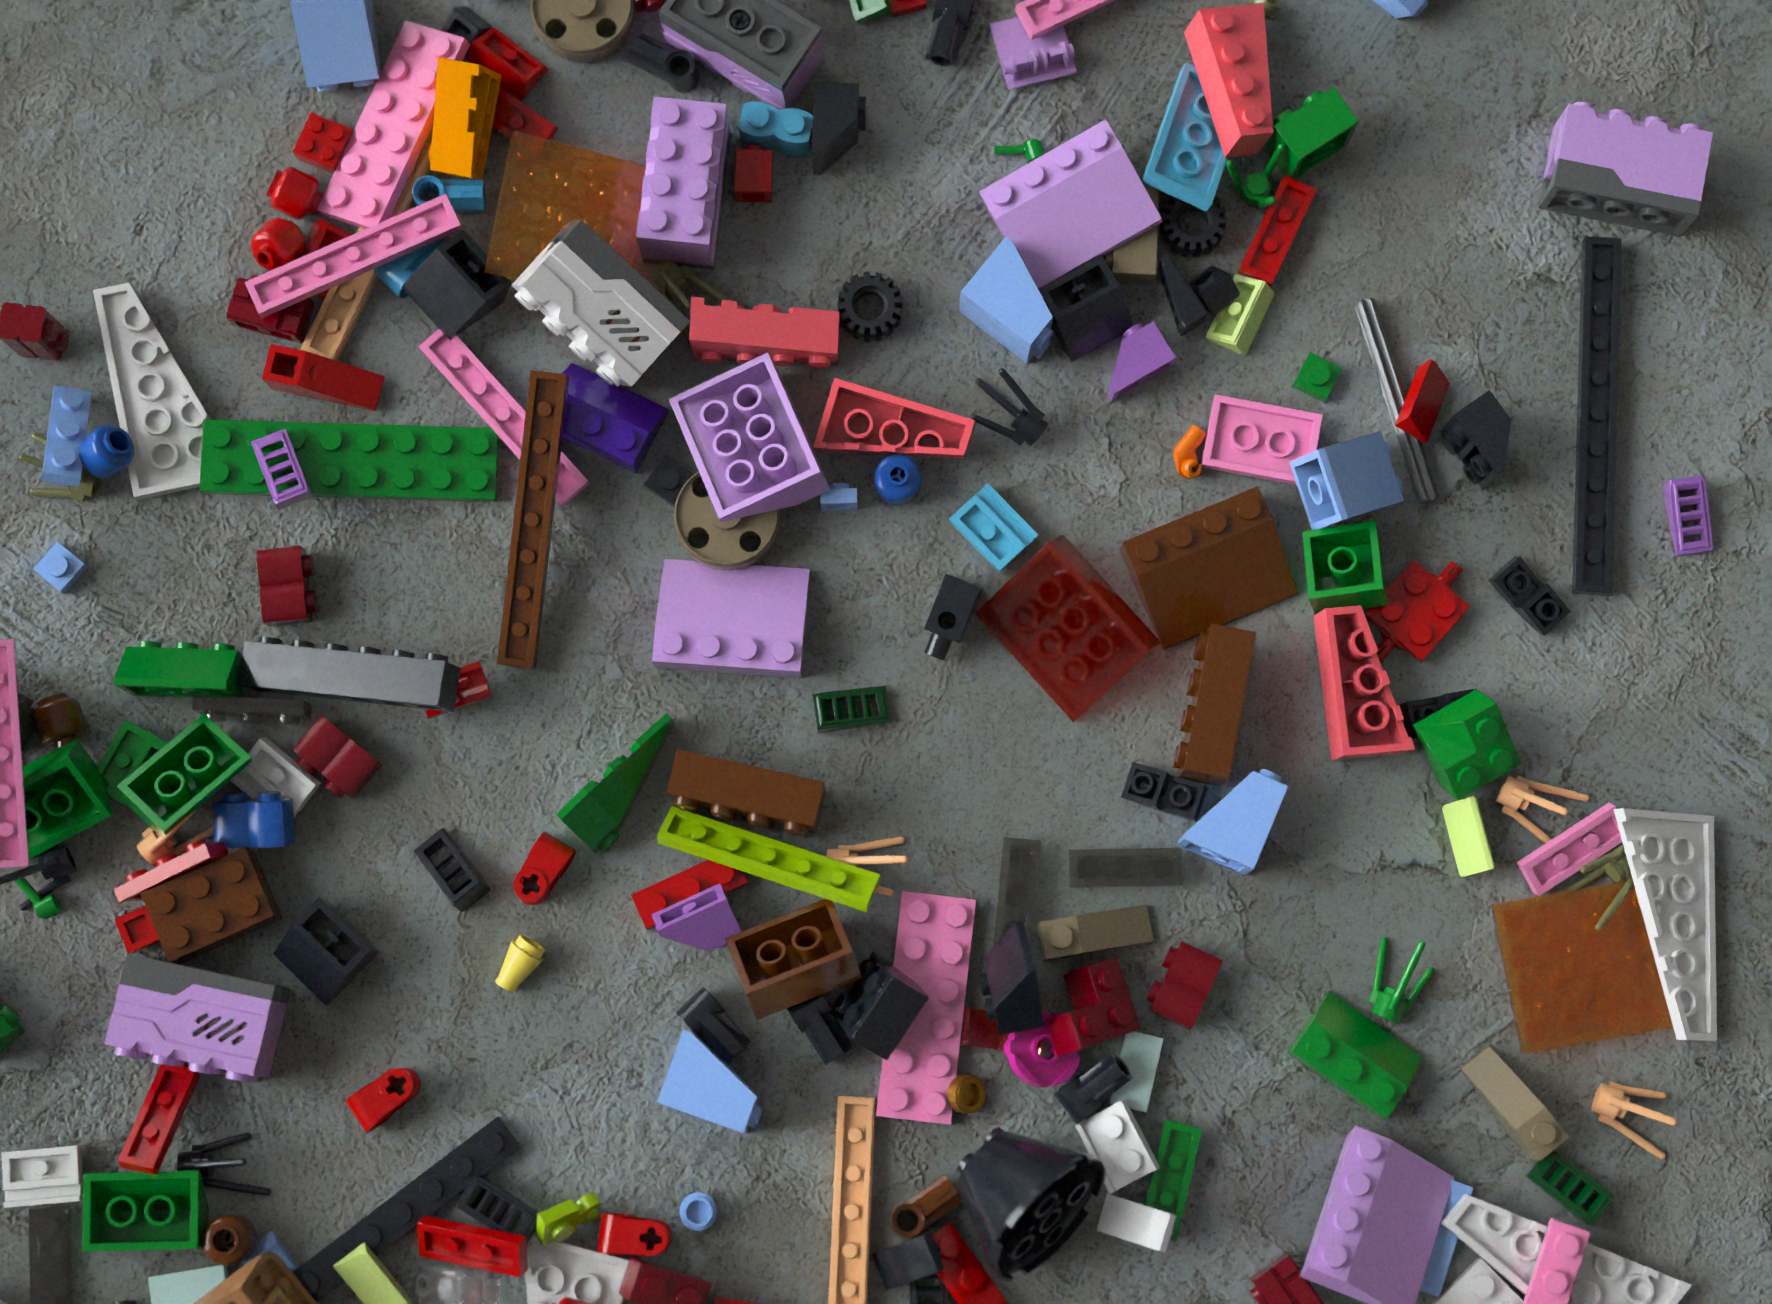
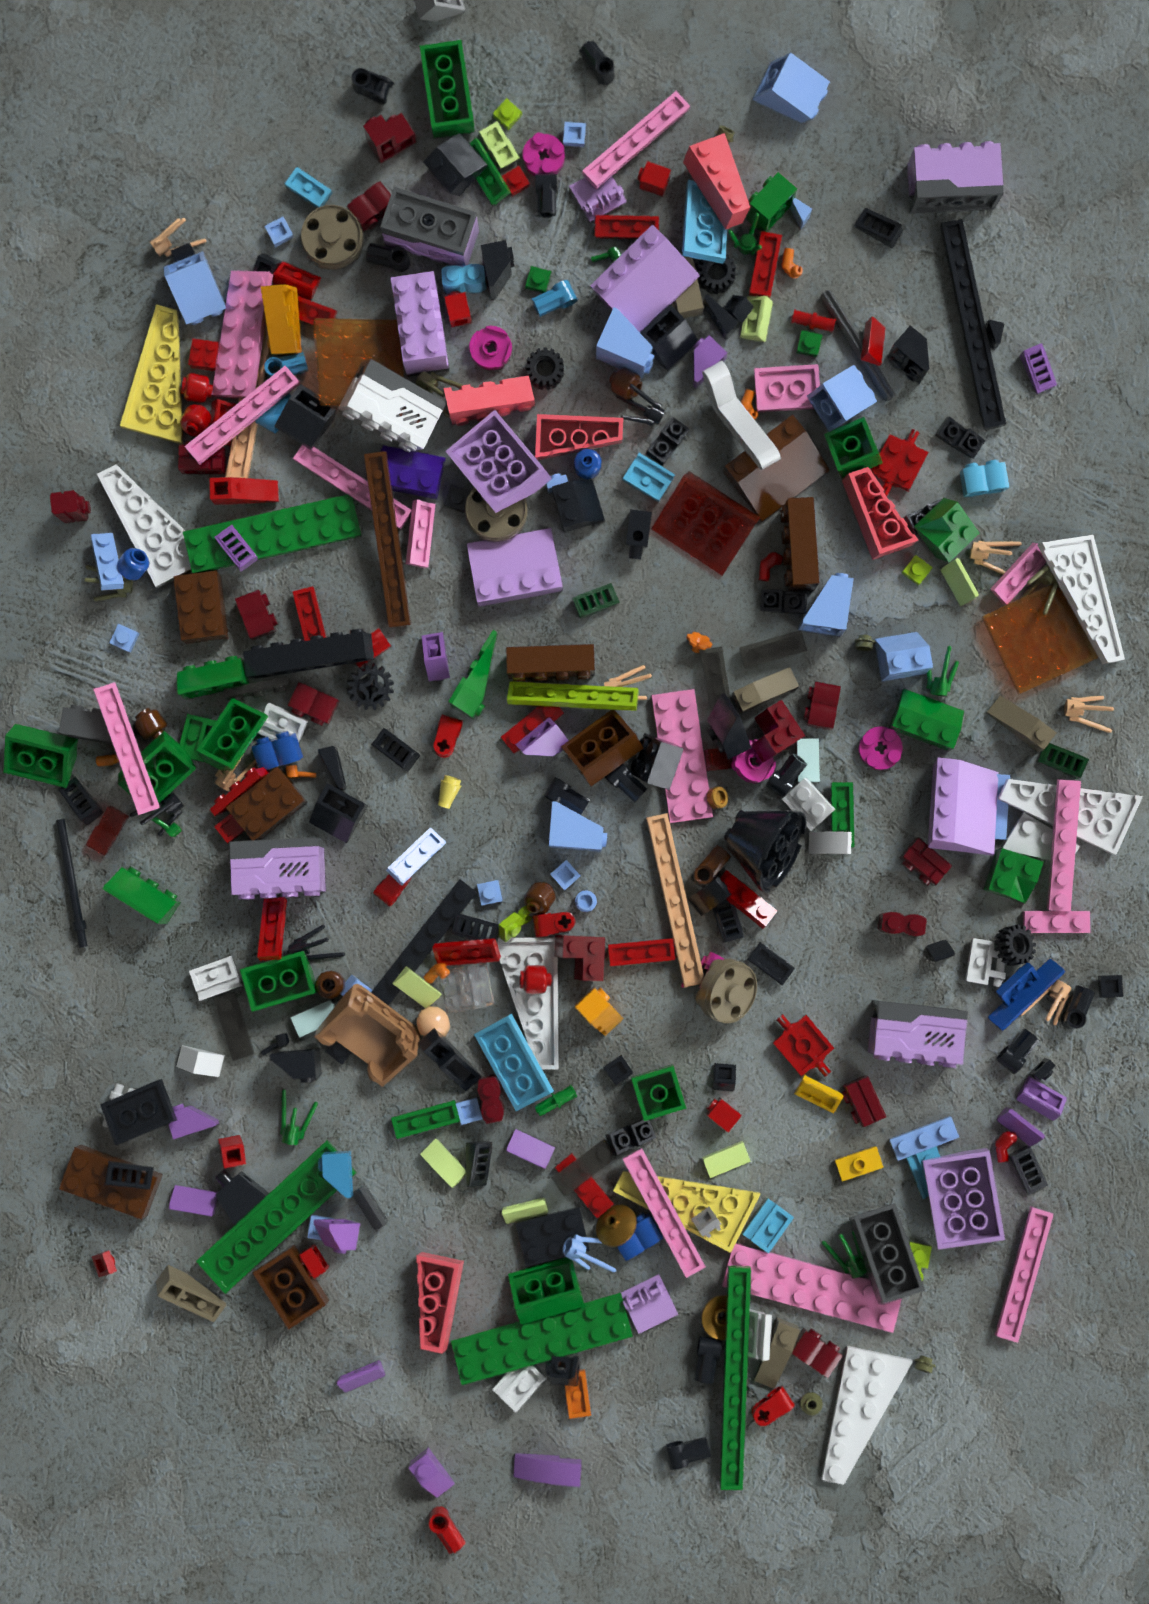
camera: 15 degrees left, 5 degrees up
(198, 550) = (201, 607): none -> reddish brown brick
(226, 185) = (155, 394): none -> light yellow wing
(270, 863) = (292, 772): none -> orange hand
(341, 868) = (332, 761): none -> black slope
(373, 606) = (309, 613): none -> red plate
(414, 1263) = (435, 971): none -> orange arm
(425, 746) = (360, 684): none -> black gear
(433, 1060) = (416, 856): none -> tile
(541, 1153) = (489, 892): none -> light blue plate
(559, 732) = (435, 657): none -> medium lavender slope
(591, 523) = (420, 533): none -> bright pink plate
(620, 1186) = (539, 898): none -> reddish brown head
(675, 1157) = (565, 875): none -> light blue plate
(786, 231) = (485, 337): none -> dark pink plate
(864, 542) = (577, 504): none -> black slope
(899, 160) = (538, 279): none -> green plate
(926, 196) = (559, 296): none -> dark azure piece
(989, 358) = (621, 380): none -> reddish brown head
(1004, 822) = (698, 642): none -> orange plant
(1040, 477) = (667, 441): none -> black slope
(1060, 110) = (623, 226): none -> red plate
(1130, 46) = (654, 178): none -> red brick
(1152, 721) = (767, 563): none -> red arm
(1164, 469) = (737, 418): none -> white beam
(1280, 1068) = (873, 758): none -> dark pink plate
(1282, 897) = (864, 643): none -> olive plate
(1315, 242) = (789, 266): none -> orange arm
(1333, 341) = (813, 320): none -> red pin
(1340, 936) = (903, 656): none -> light blue slope
(1357, 161) = (800, 211): none -> light blue slope
(1402, 797) = (917, 570): none -> lime plate
(1483, 237) = (883, 221): none -> black slope
(1552, 675) = (984, 478): none -> medium azure brick
(1629, 437) = (994, 332): none -> black slope

